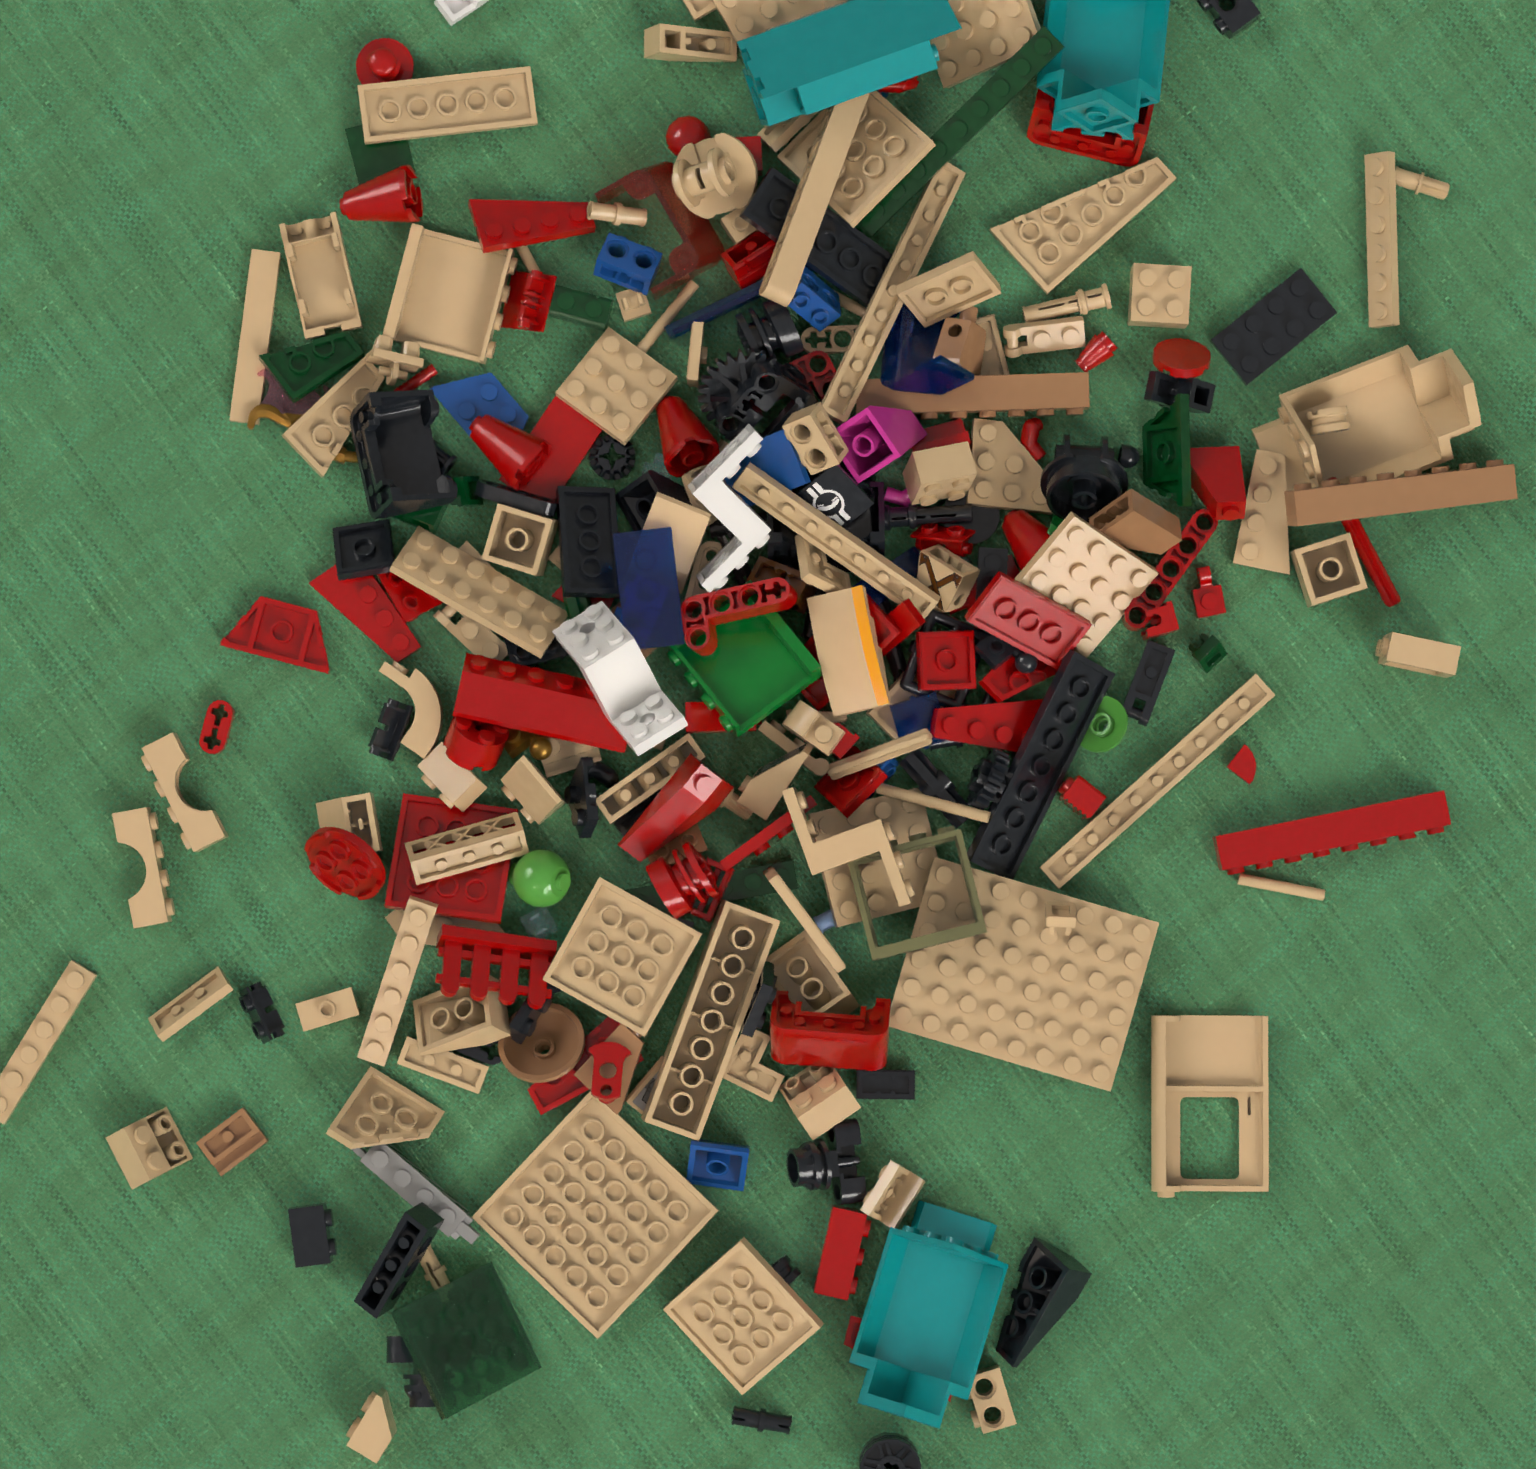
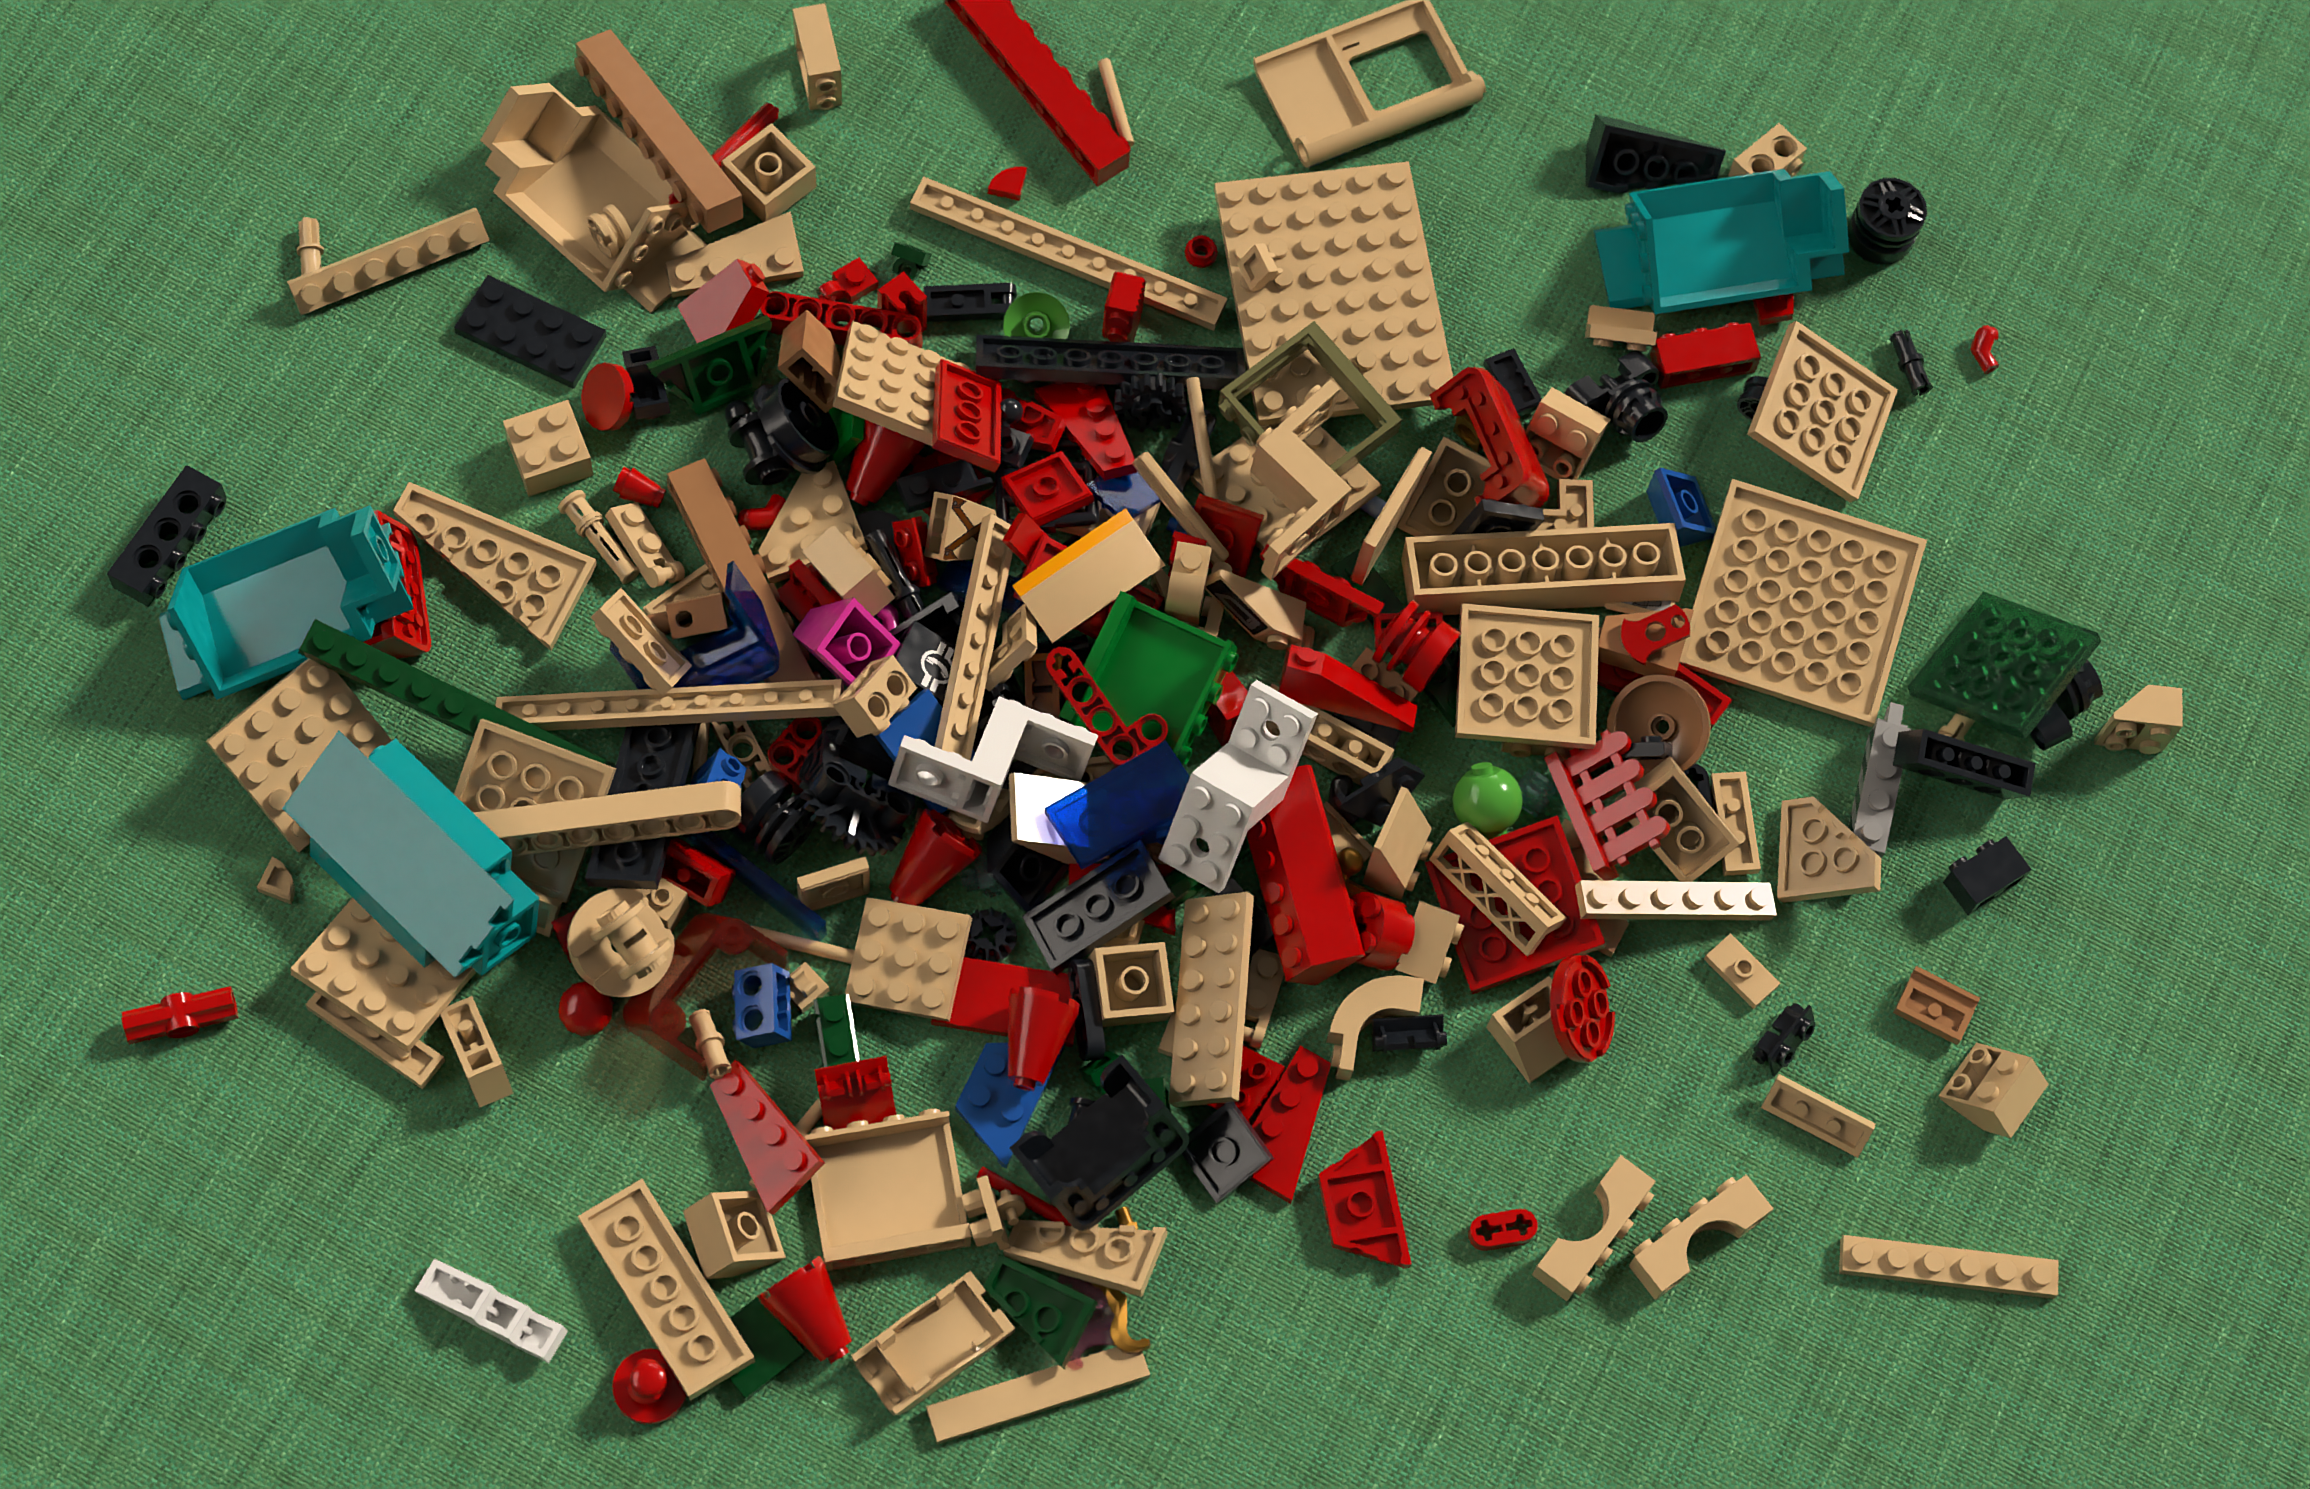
camera: 125 degrees left, 20 degrees down
(466, 169) = (733, 1234): none -> tan slope
(1122, 890) = (1204, 244): none -> red plate

